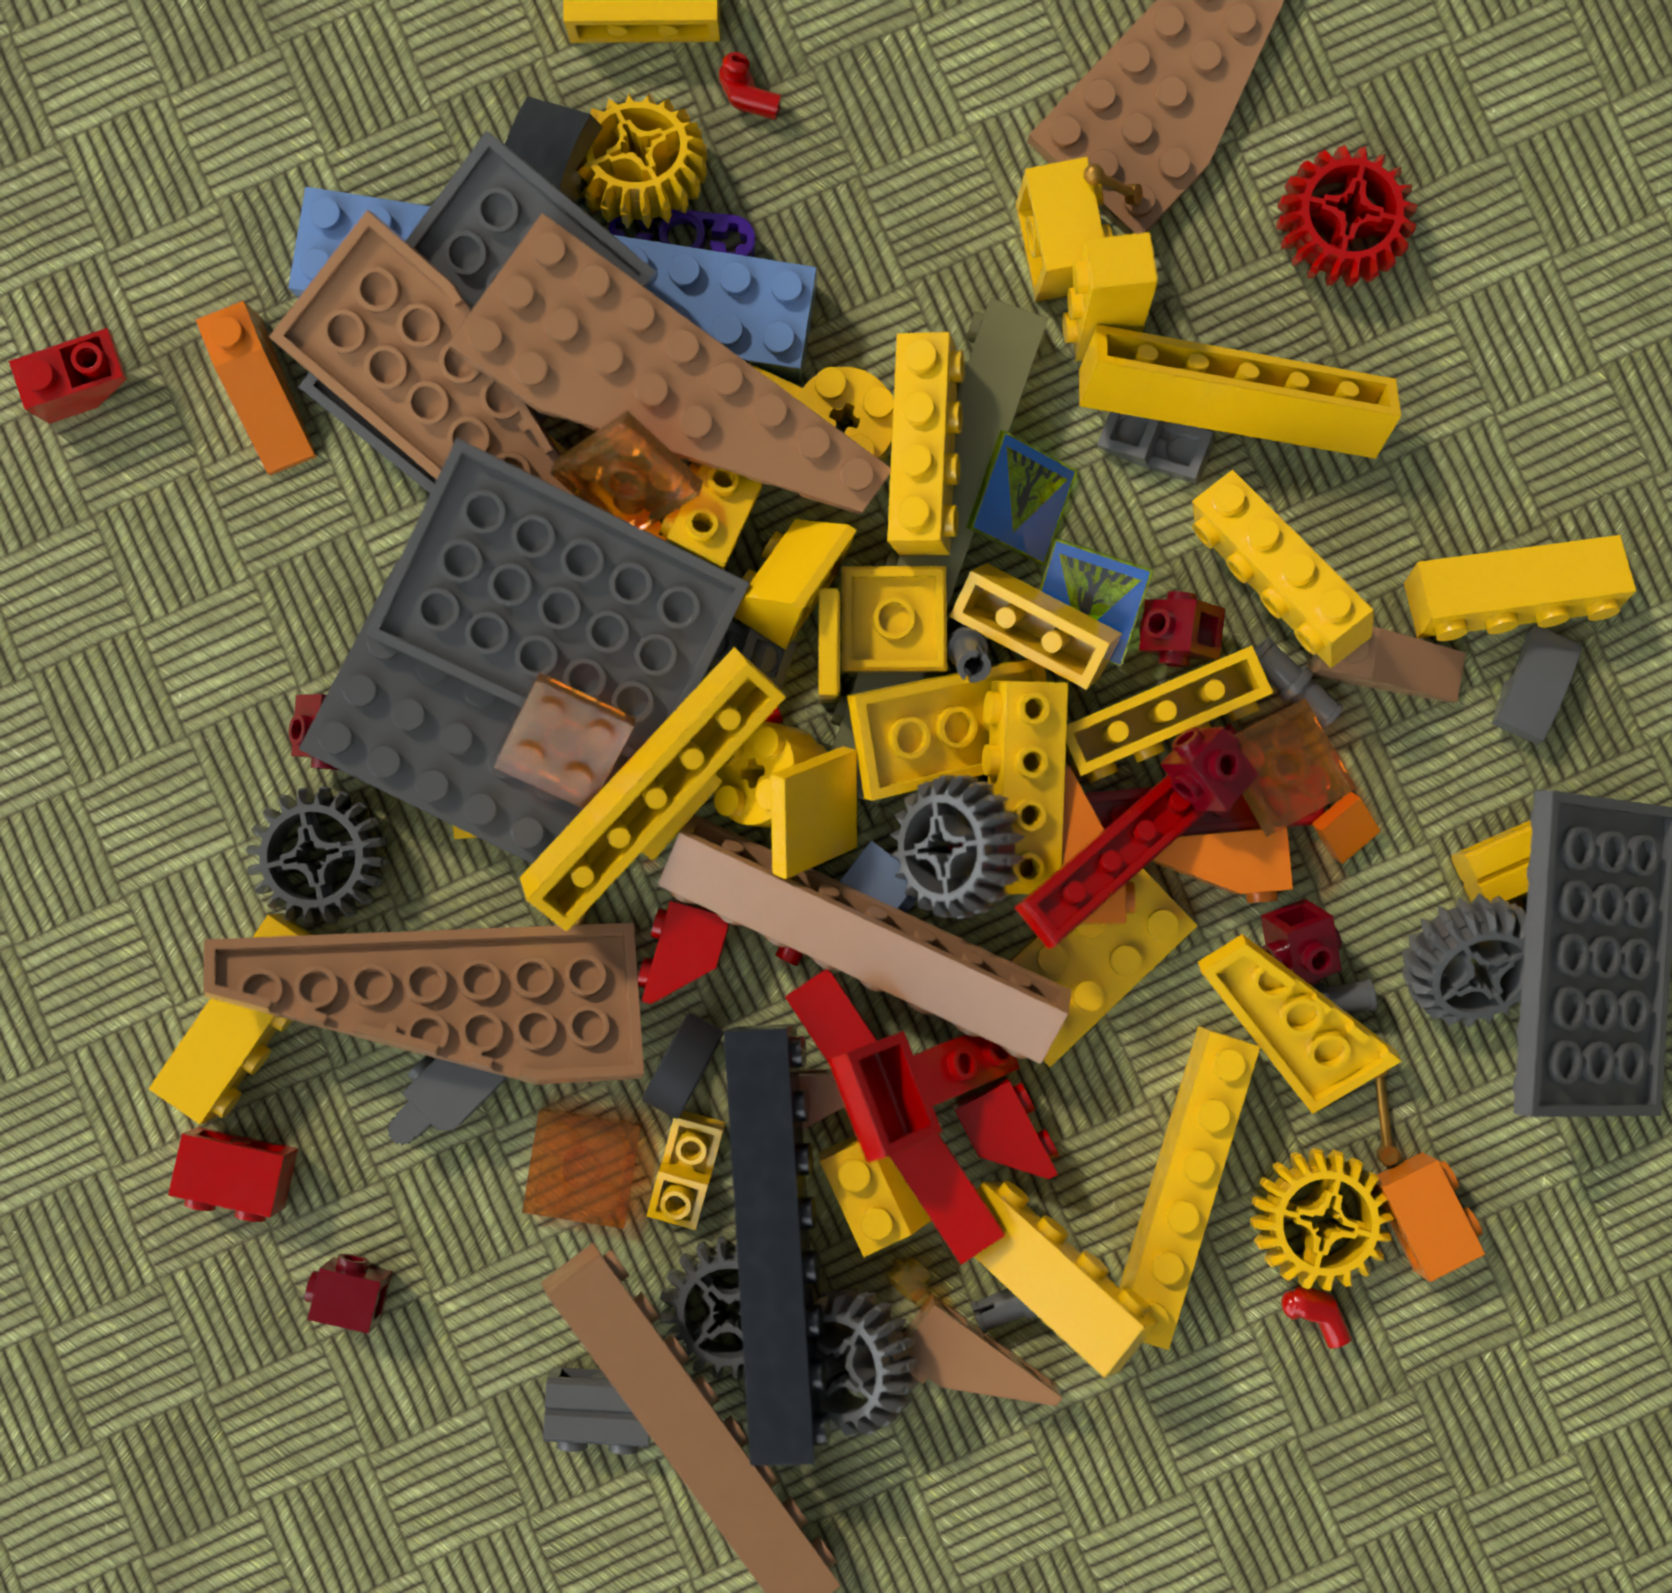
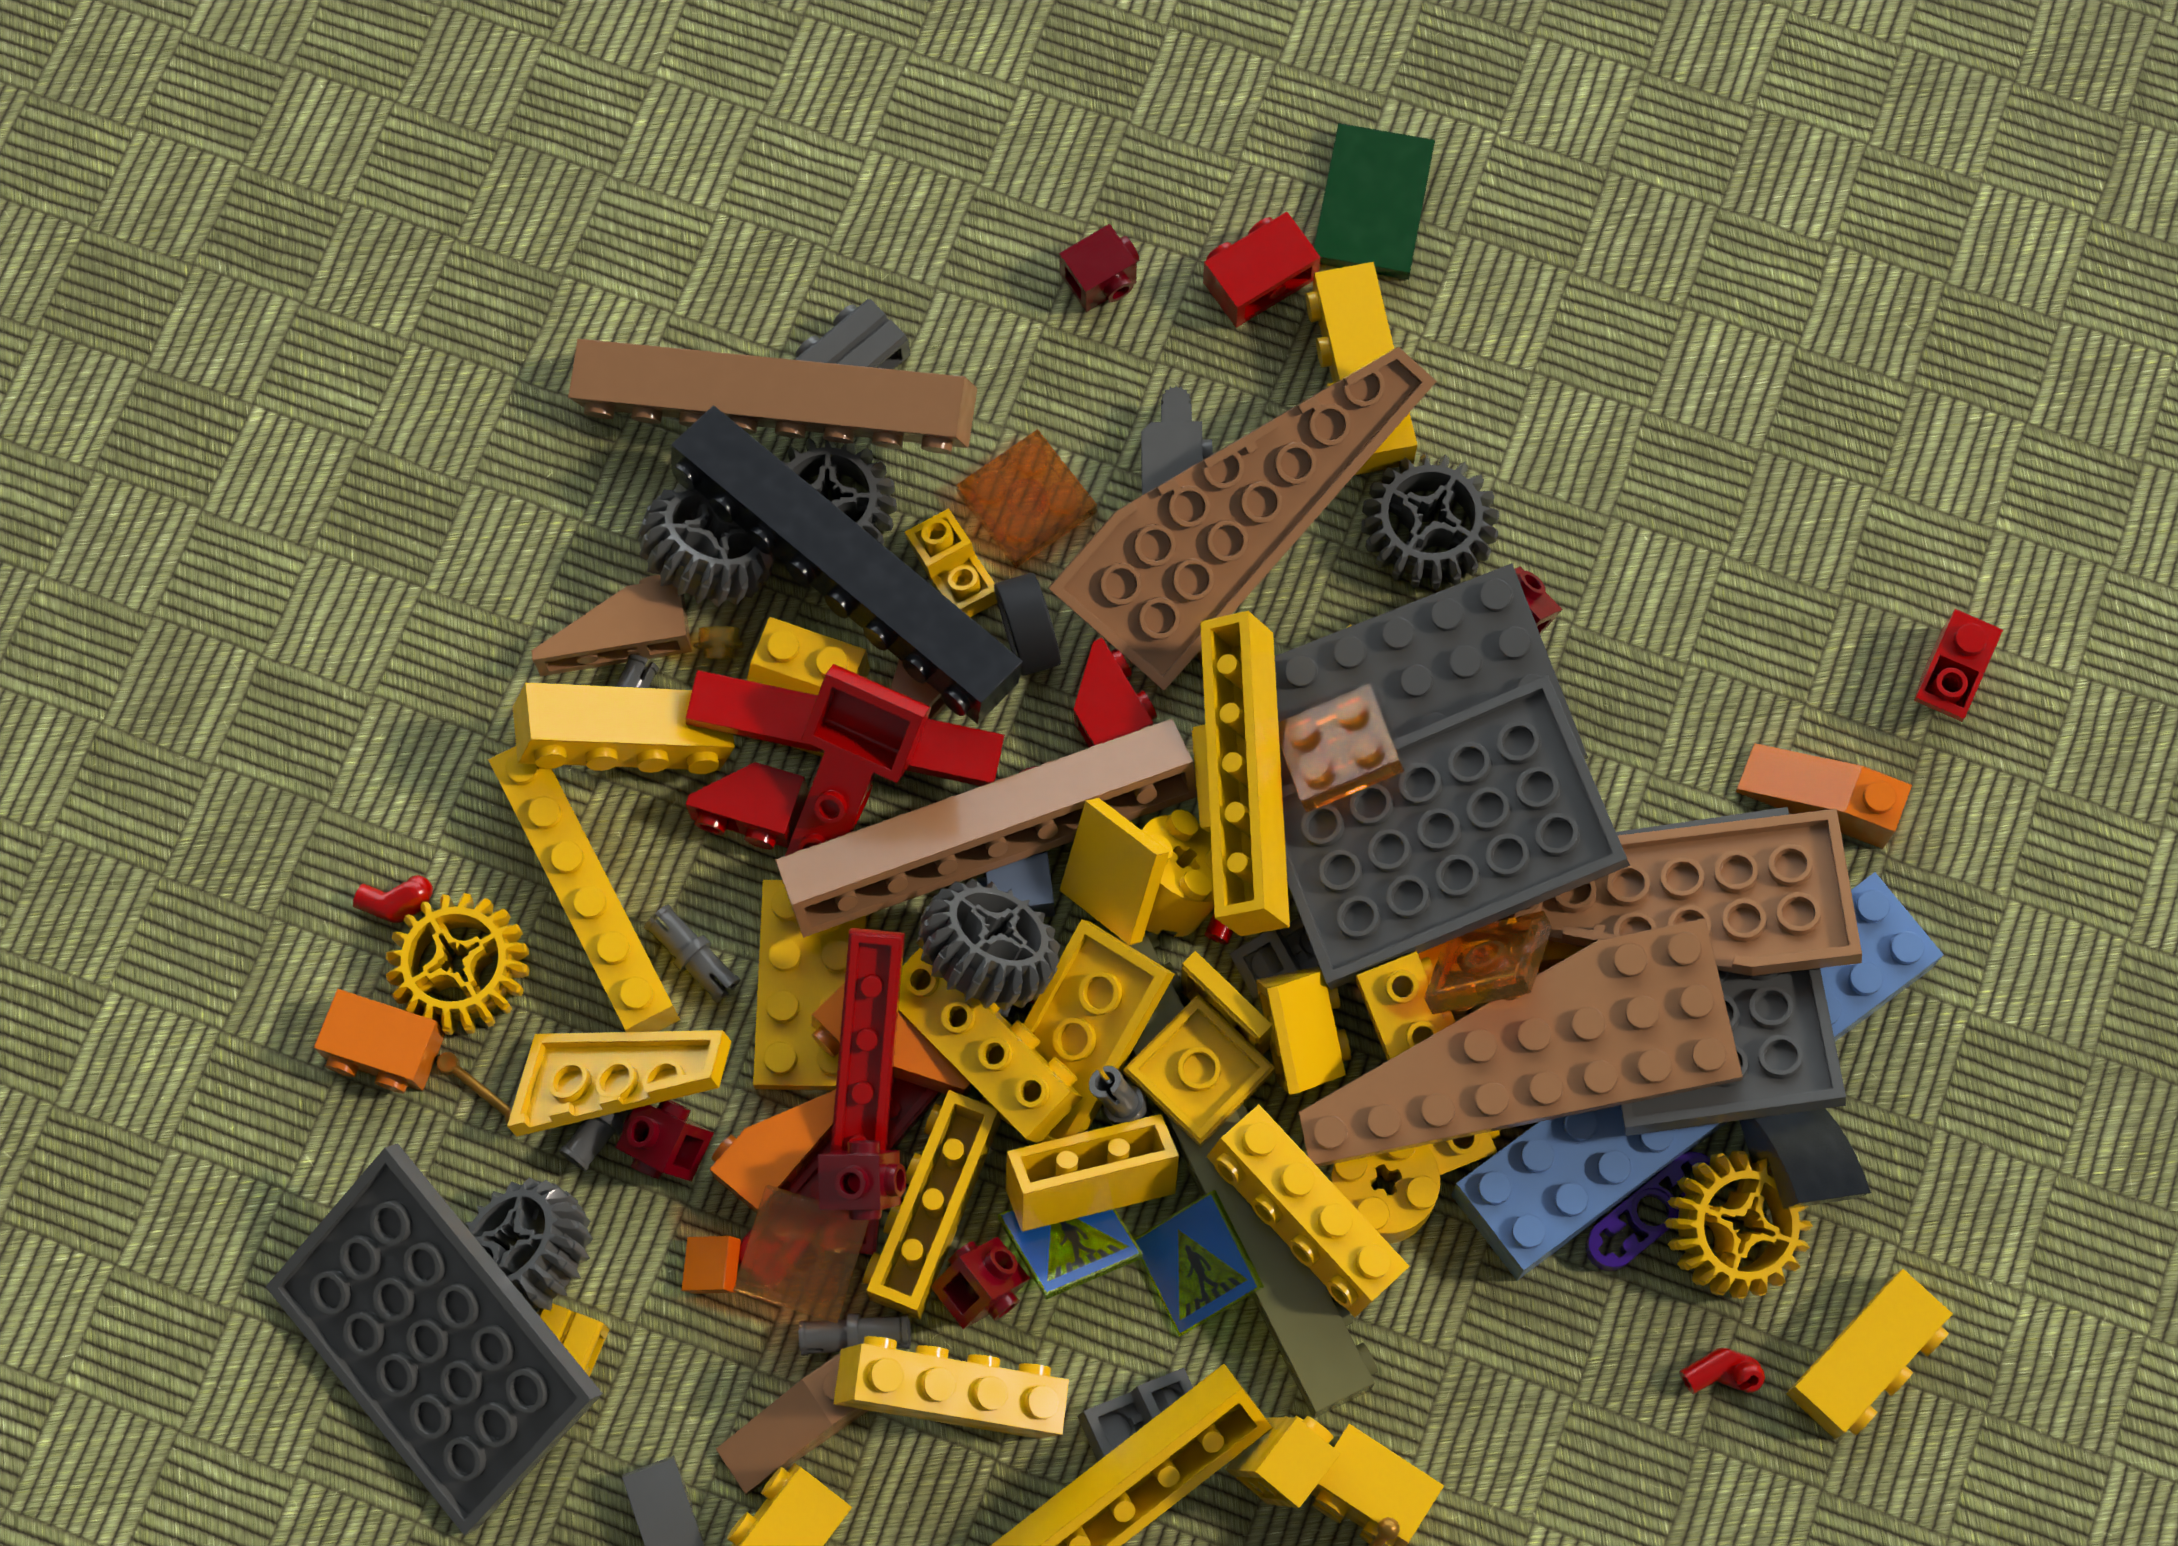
camera: 140 degrees right, 15 degrees down
(94, 1144) = (1373, 200): none -> dark green tile
(1150, 1063) = (692, 953): none -> dark grey pin

